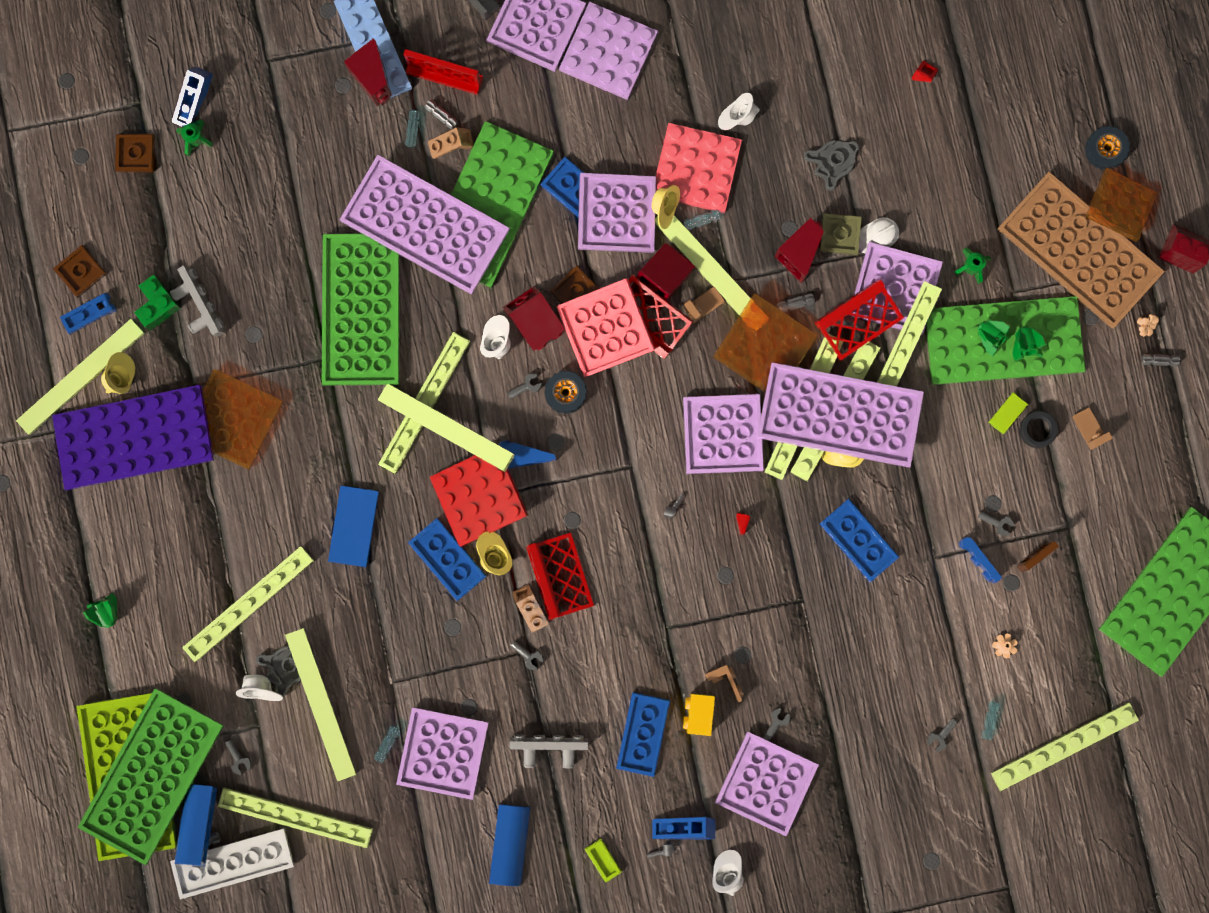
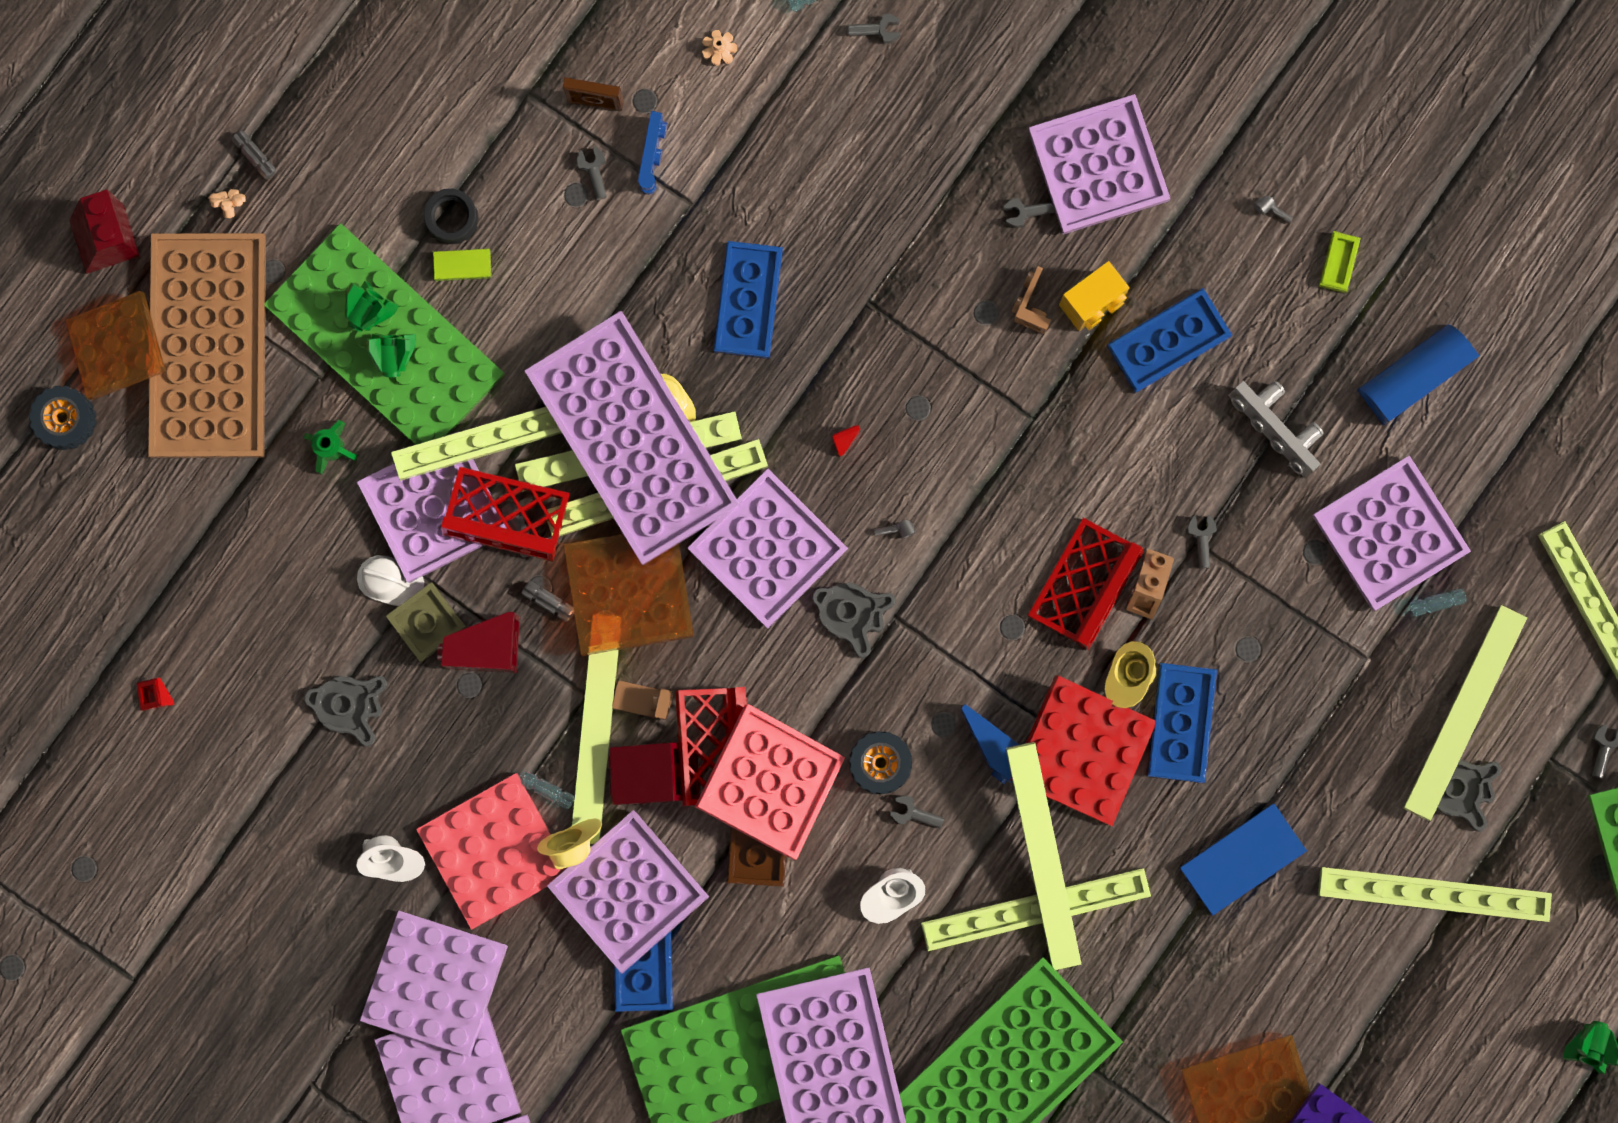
camera: 135 degrees left, 0 degrees up
(257, 687) = (1512, 799): white piece -> none
(534, 318) = (831, 874): dark red slope -> none
(652, 447) = (851, 612): none -> dark grey tile
(658, 81) = (434, 983): none -> lavender plate
(684, 828) = (1227, 206): blue slope -> none
(728, 872) = (1230, 120): white piece -> none
(1090, 429) = (400, 160): medium nougat bracket -> none

